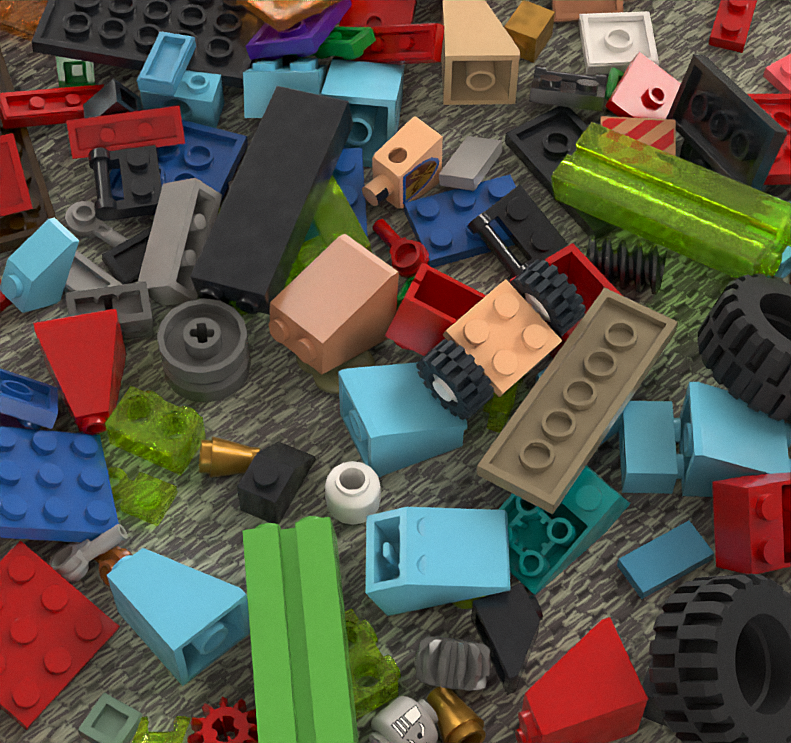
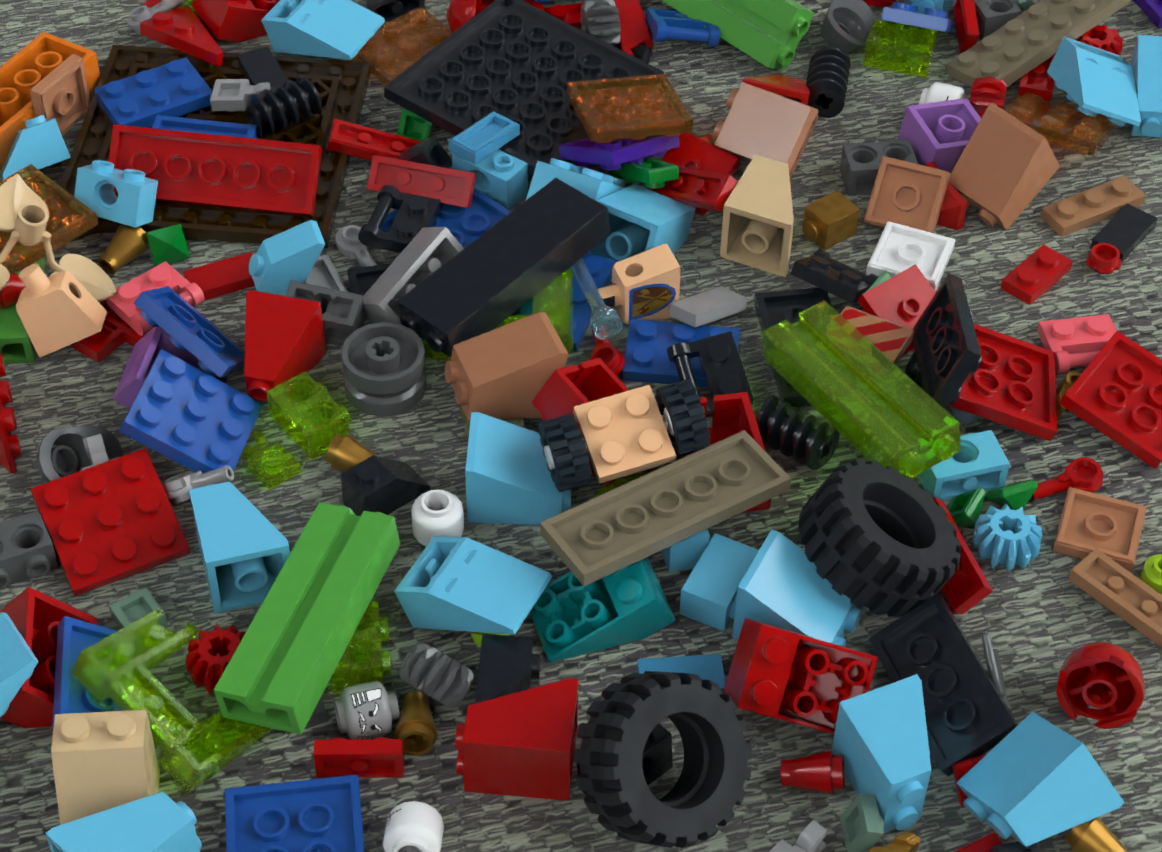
camera: 25 degrees right, 10 degrees down
(394, 217) = (604, 319): none -> clear light blue piece

